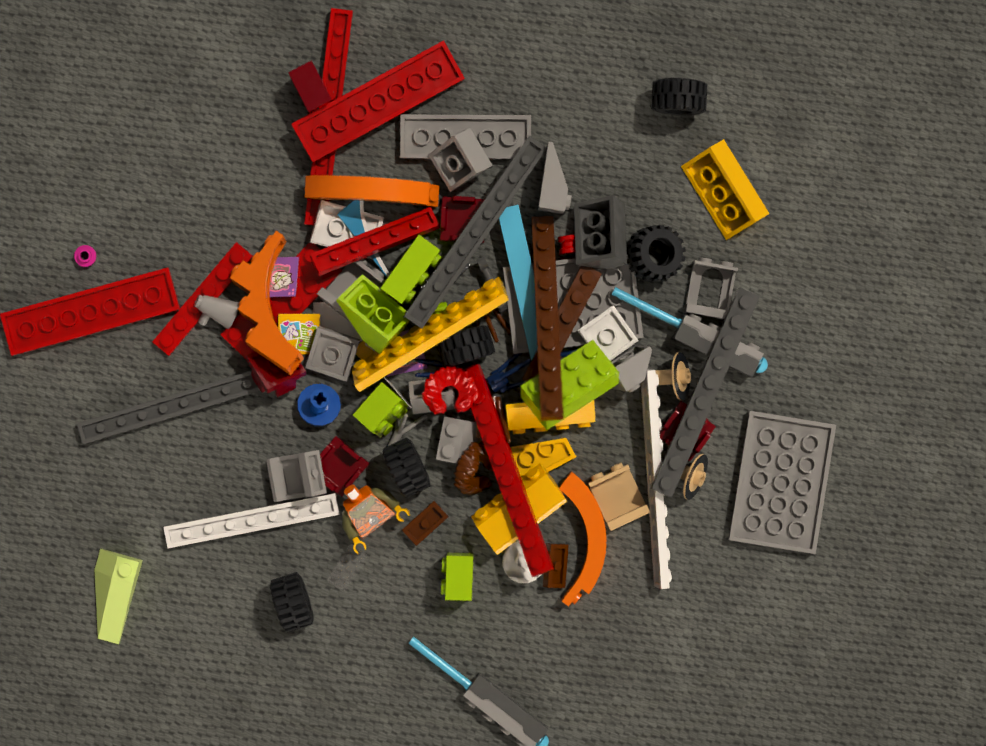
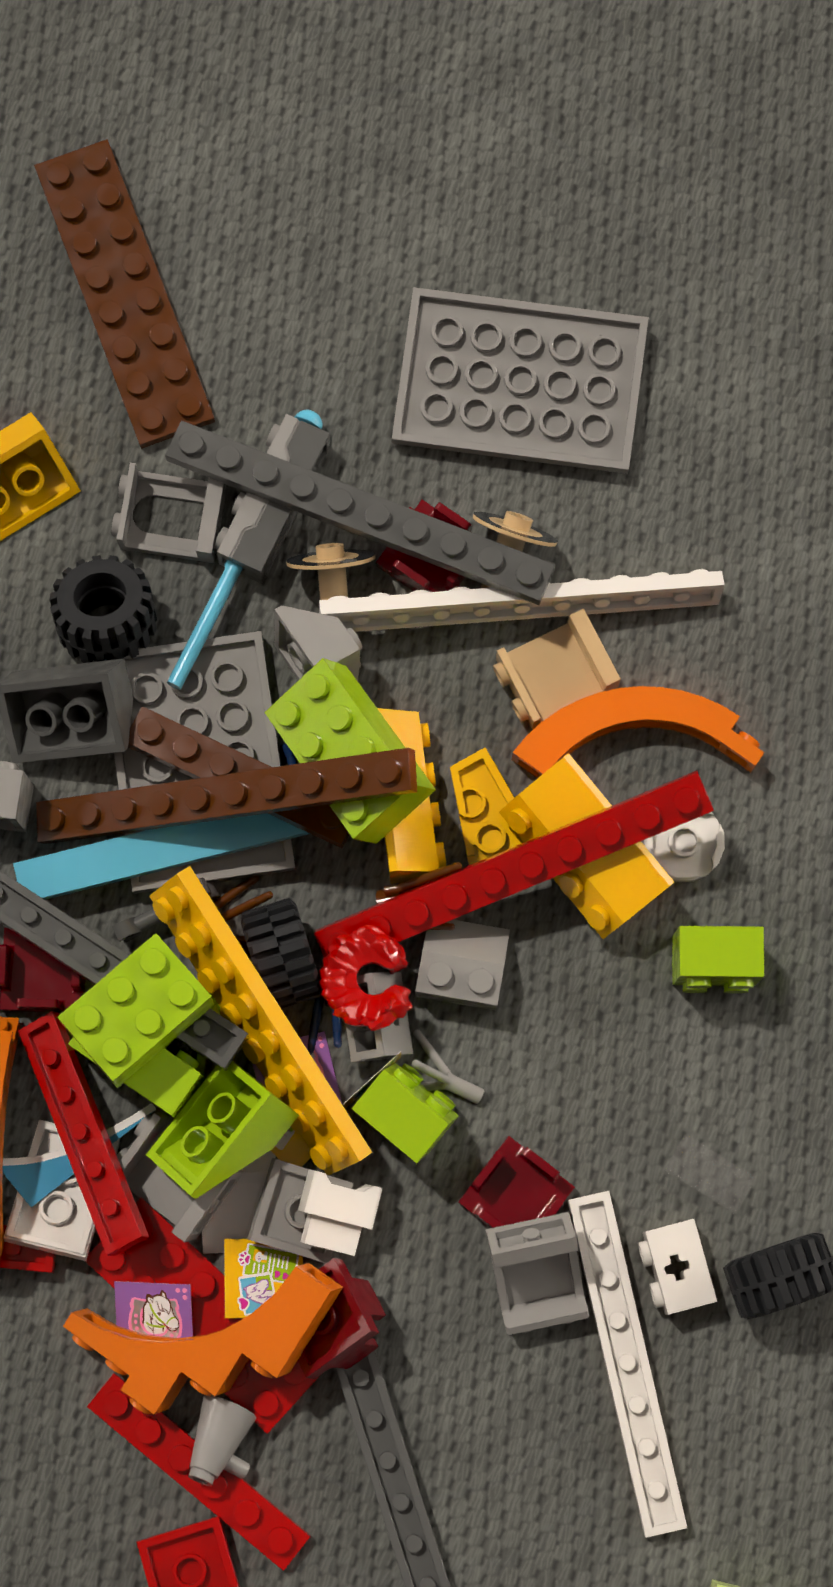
camera: 90 degrees left, 10 degrees down
(288, 556) = (695, 1285): none -> white brick
(318, 404) = (401, 1236): blue piece -> none
(330, 372) = (336, 1213): none -> white piece
(367, 510) = (600, 1135): torso -> none
(406, 467) = (514, 1060): black tyre -> none
(425, 523) = (619, 1026): reddish brown plate -> none
(433, 271) = (136, 1010): none -> lime brick
(467, 468) = (509, 943): reddish brown piece -> none
(500, 378) = (345, 893): dark blue plant -> none
(559, 556) = (713, 775): reddish brown plate -> none
(567, 244) = (89, 772): red wheel -> none
(609, 333) = (248, 689): white tile -> none
(839, 264) = (124, 293): none -> reddish brown plate

